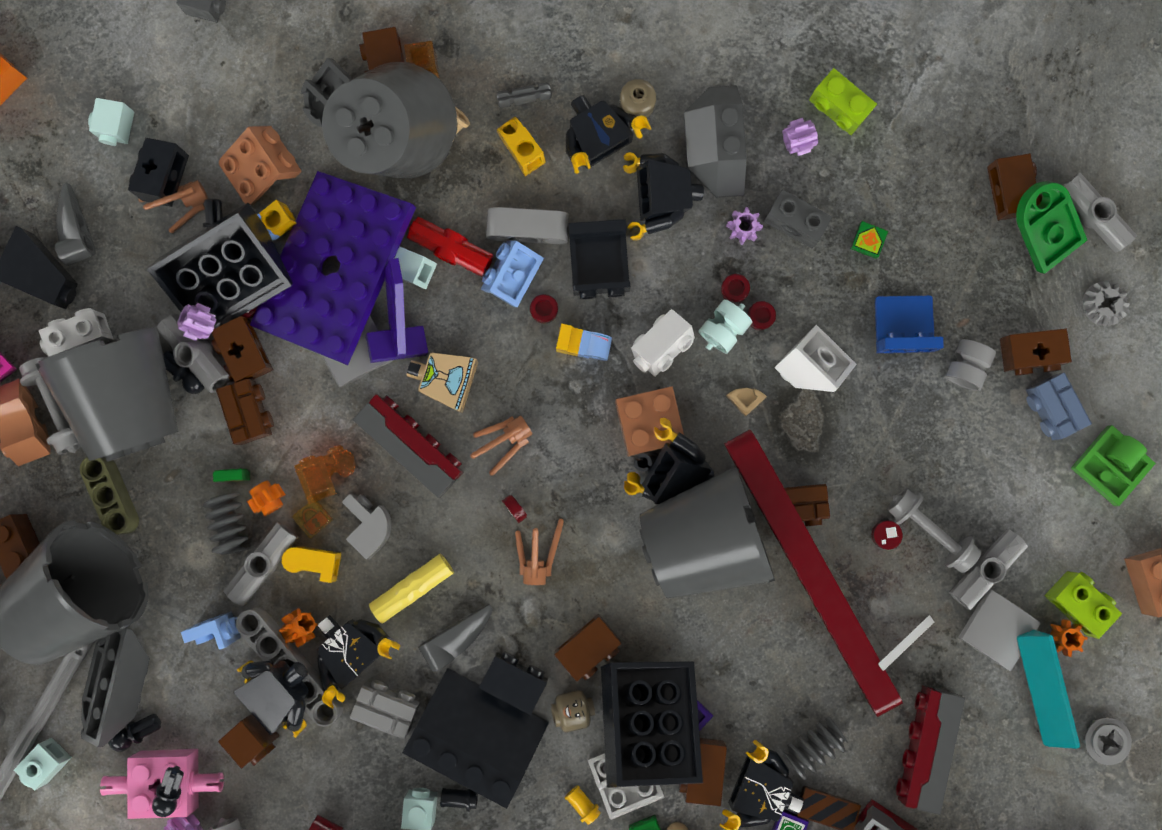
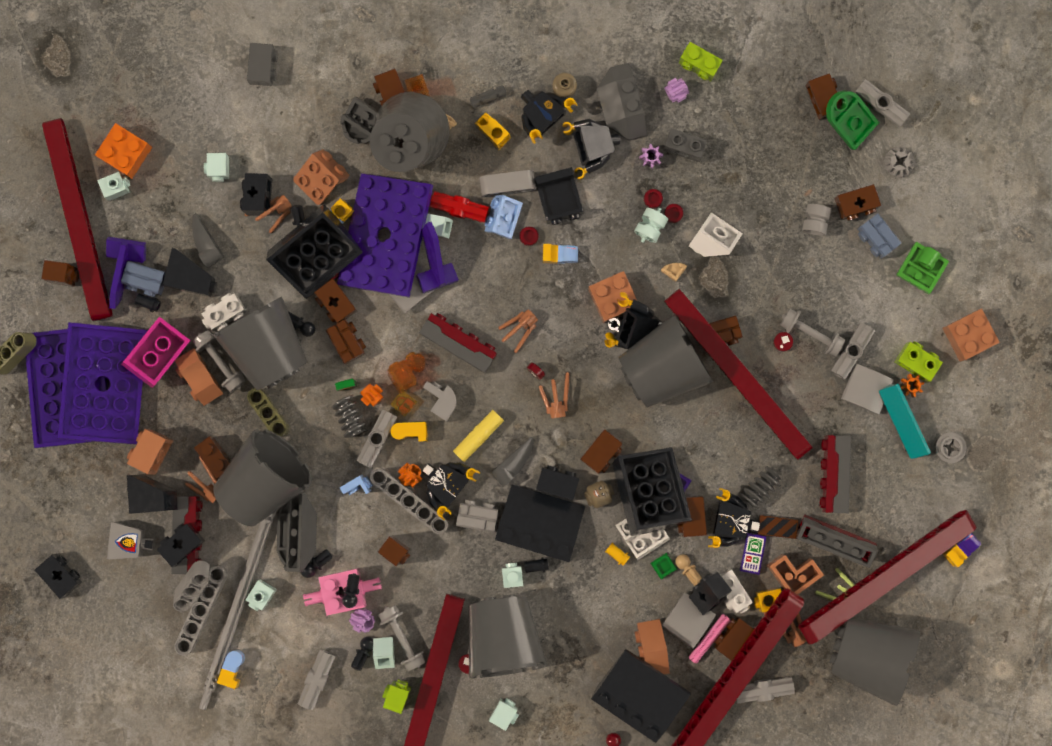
camera: 10 degrees left, 0 degrees up
(193, 354) = (312, 315): light grey piece -> none
(196, 321) = (304, 288): lavender gear -> none
(275, 694) = (406, 517): torso -> none
(445, 378) = (473, 294): tan torso -> none
(662, 343) = (611, 244): white brick -> none
(869, 239) = (735, 149): tile -> none
(903, 645) = (810, 405): white sticker -> none
(905, 325) = (769, 201): blue bracket -> none

